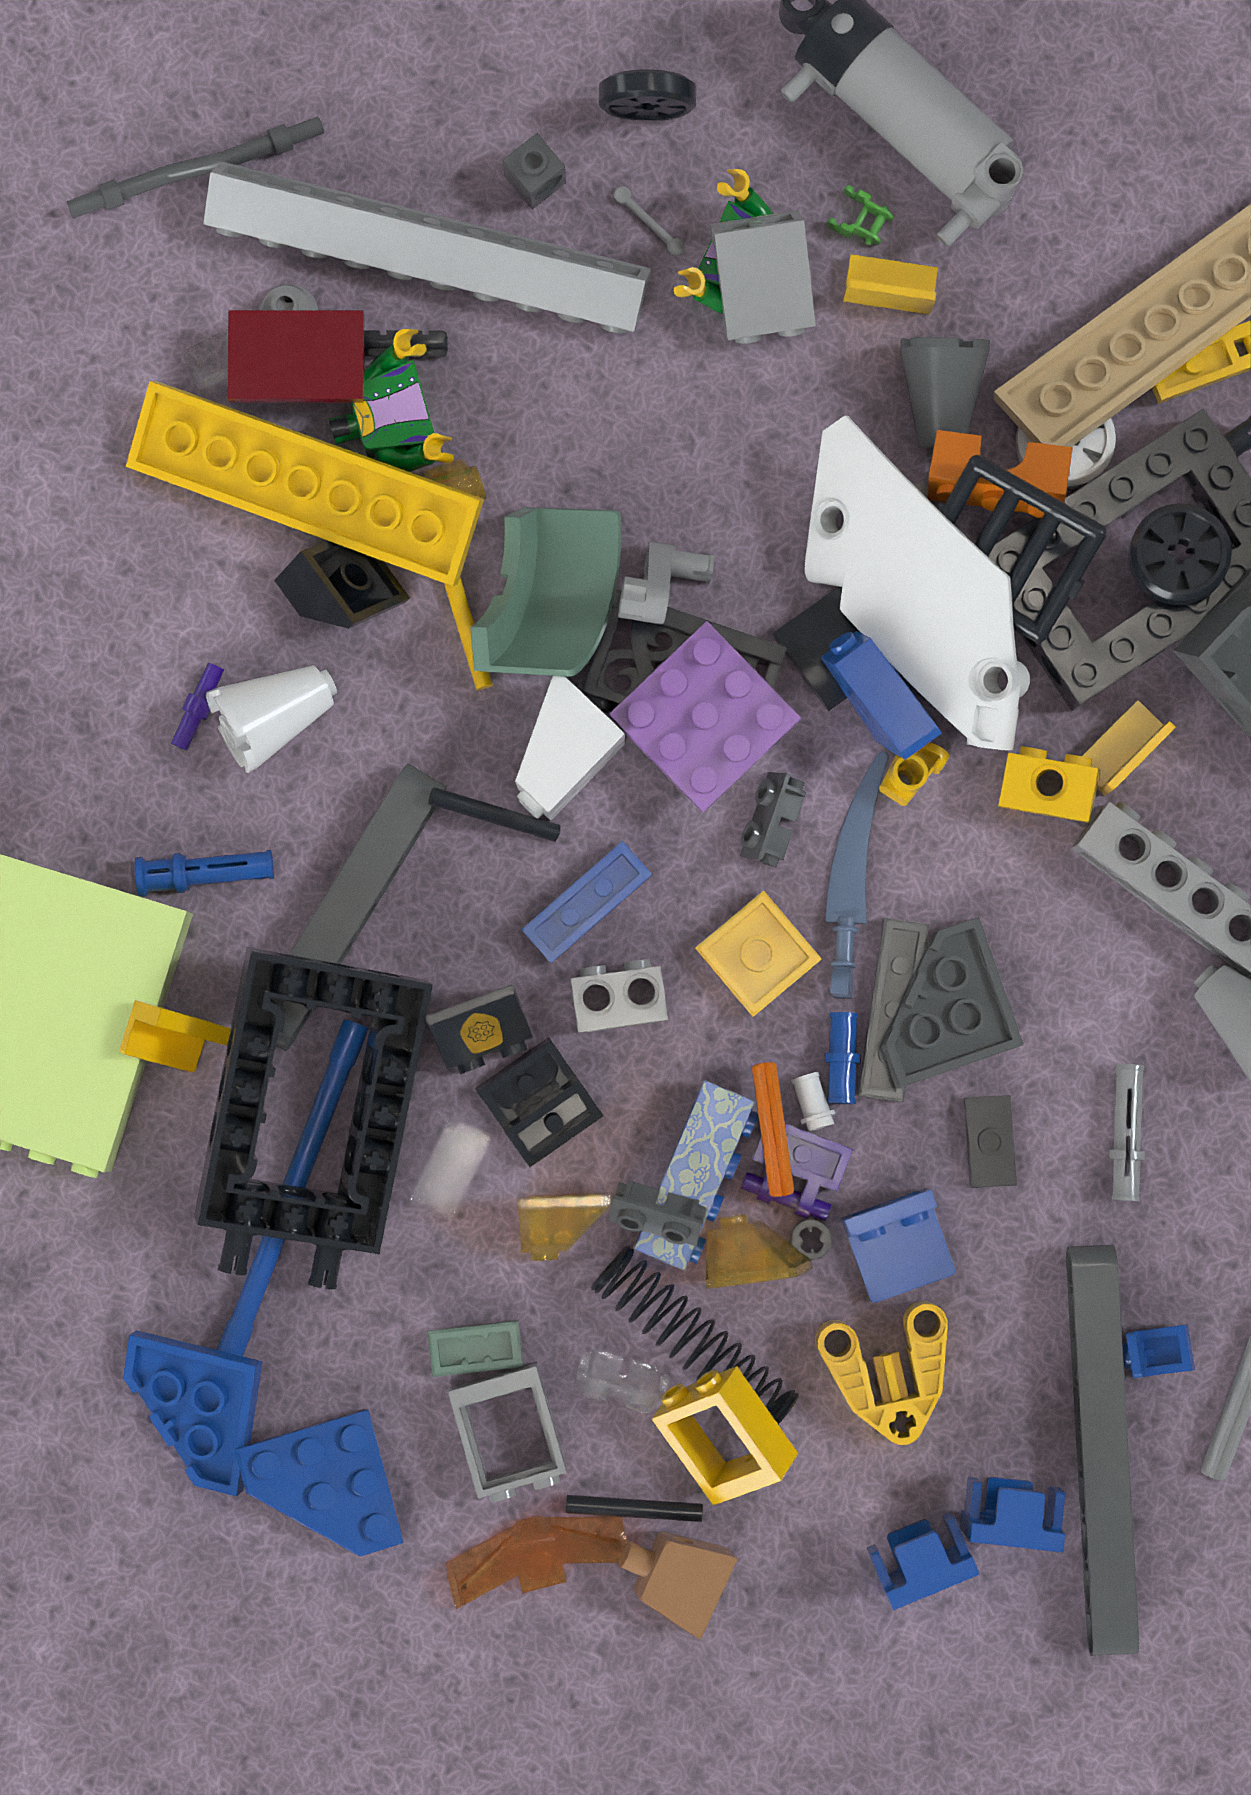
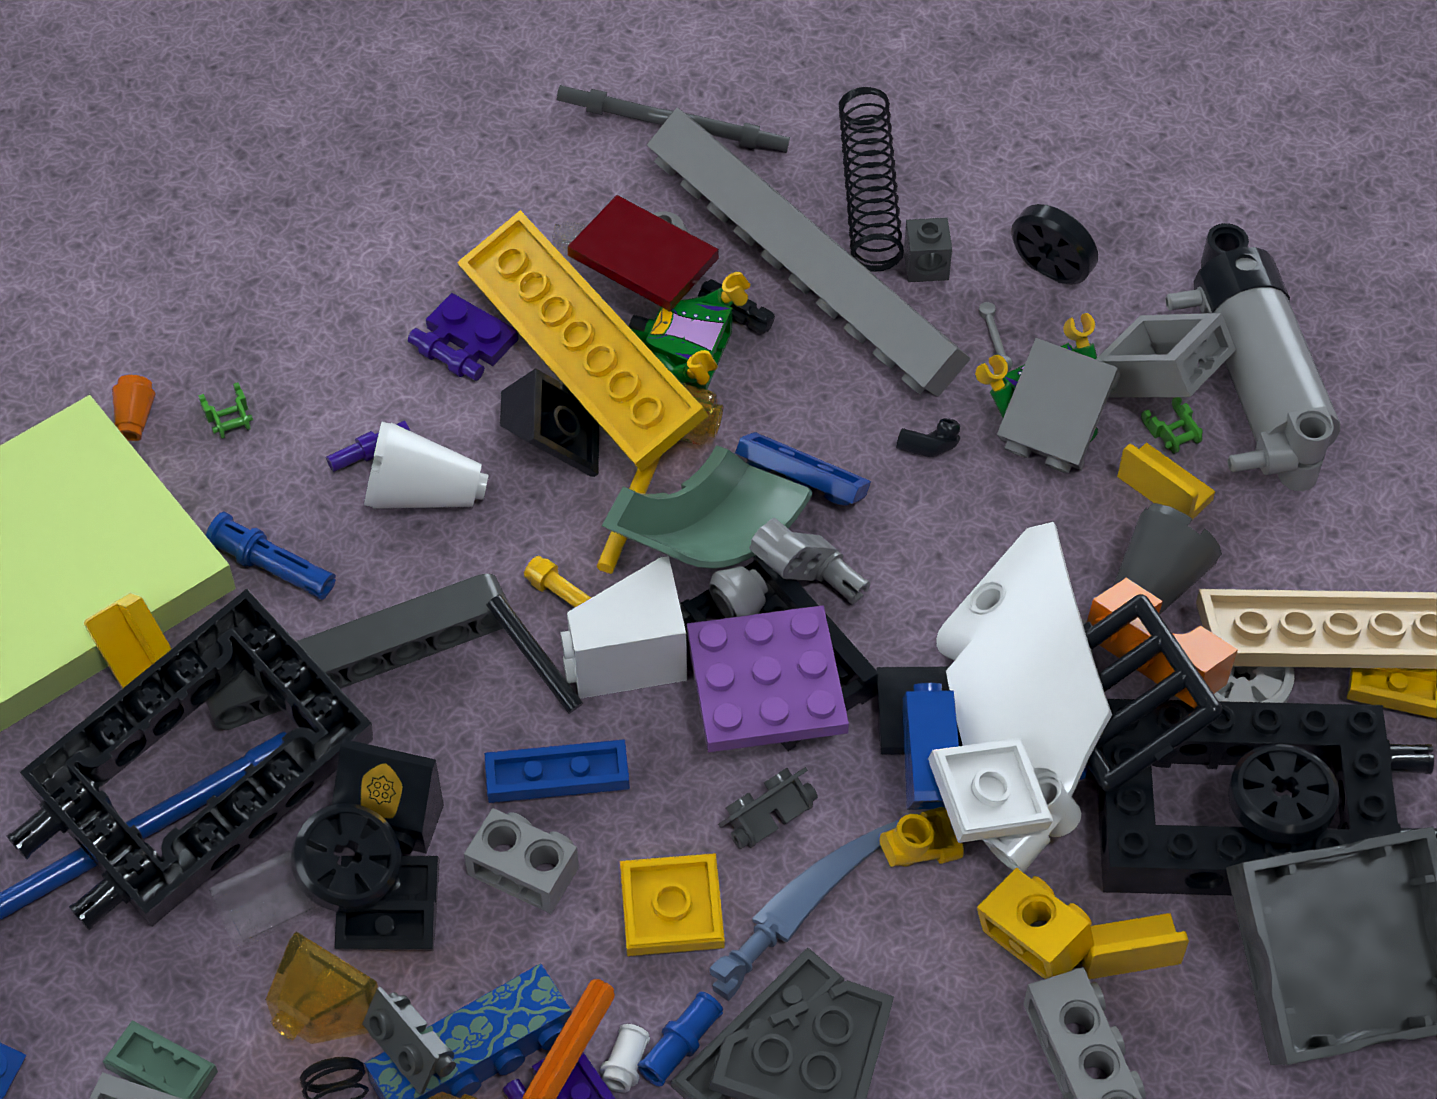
camera: 35 degrees right, 30 degrees down
(61, 764) = (241, 407): none -> bright green piece
(189, 525) = (469, 328): none -> dark purple plate
(440, 730) = (544, 574): none -> yellow bar
(472, 1084) = (333, 831): none -> black wheel
(505, 192) = (877, 236): none -> black piece
(582, 479) = (768, 455): none -> blue plate
(627, 653) = (738, 591): none -> light grey cone
(671, 374) = (930, 444): none -> black arm
(858, 162) = (1182, 341): none -> light grey window
(960, 713) = (990, 790): none -> white plate

